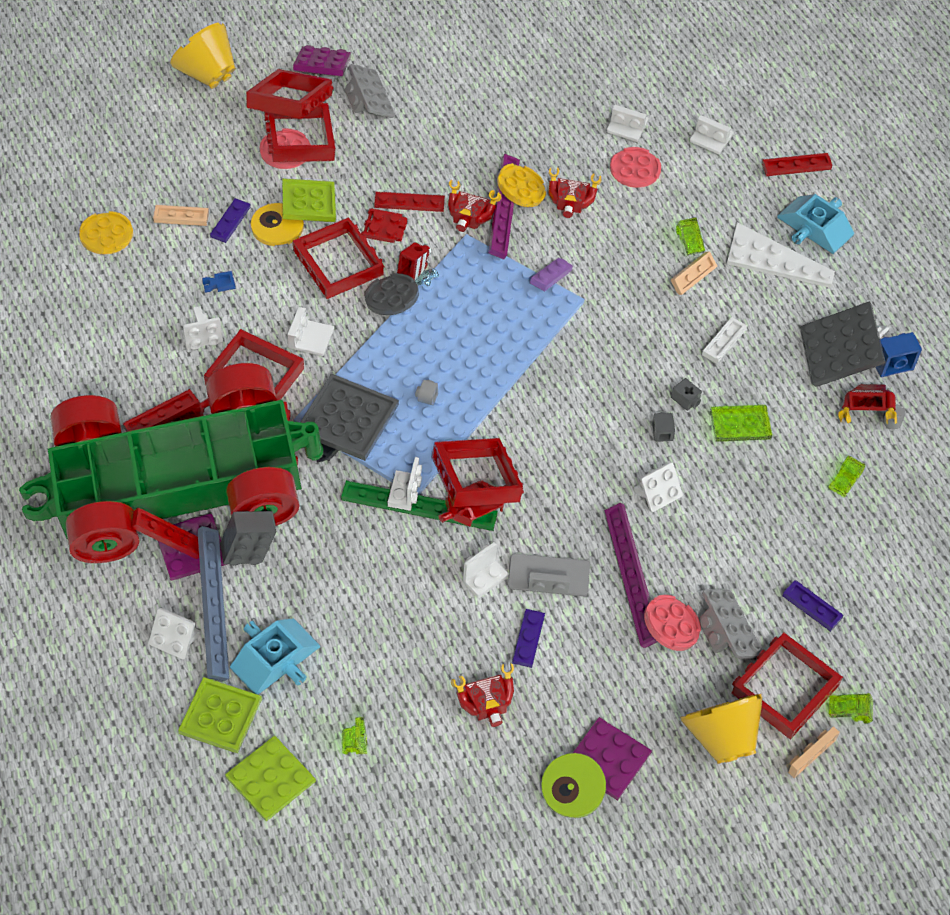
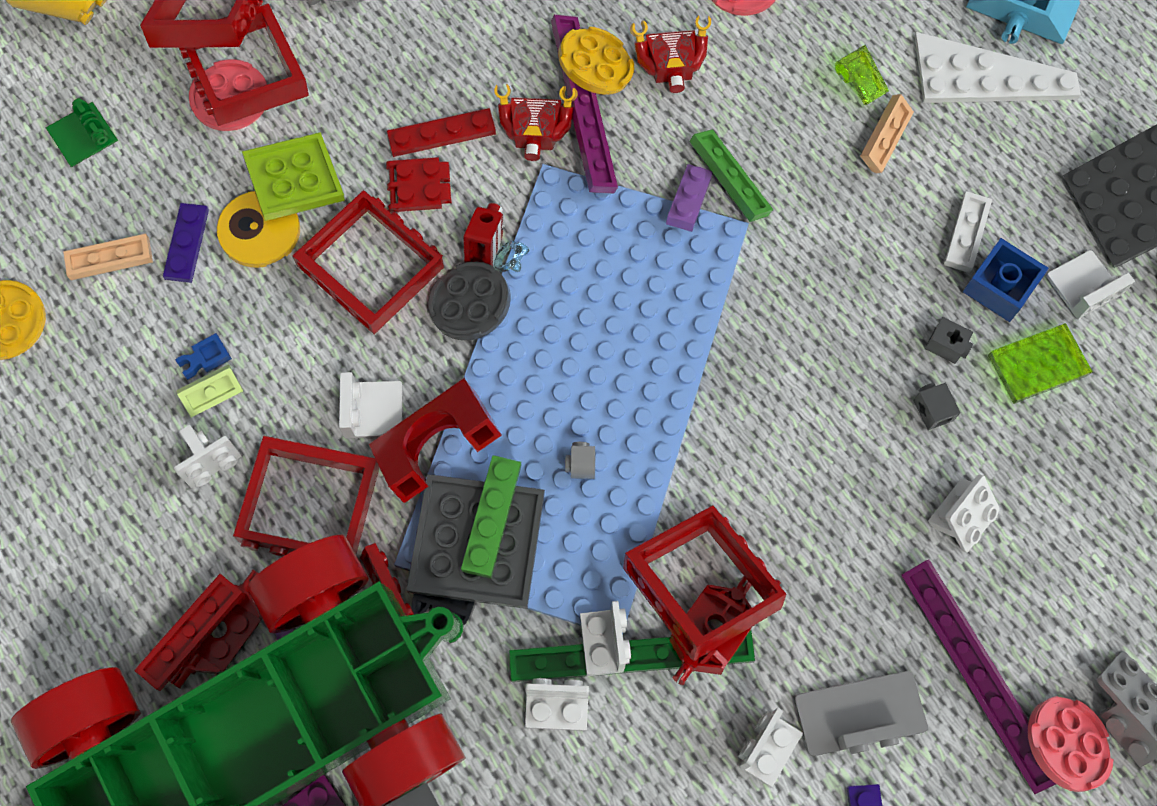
camera: 15 degrees left, 15 degrees up
(188, 146) = (81, 132): none -> green hinge
(216, 300) = (209, 390): none -> yellowish green plate
(320, 357) = (400, 446): none -> red arch
(361, 404) = (491, 517): none -> bright green plate
(364, 513) = (556, 705): none -> white bracket
(583, 270) = (731, 175): none -> bright green plate
(735, 370) = (1005, 280): none -> blue brick
(791, 389) = (1087, 284): none -> white bracket

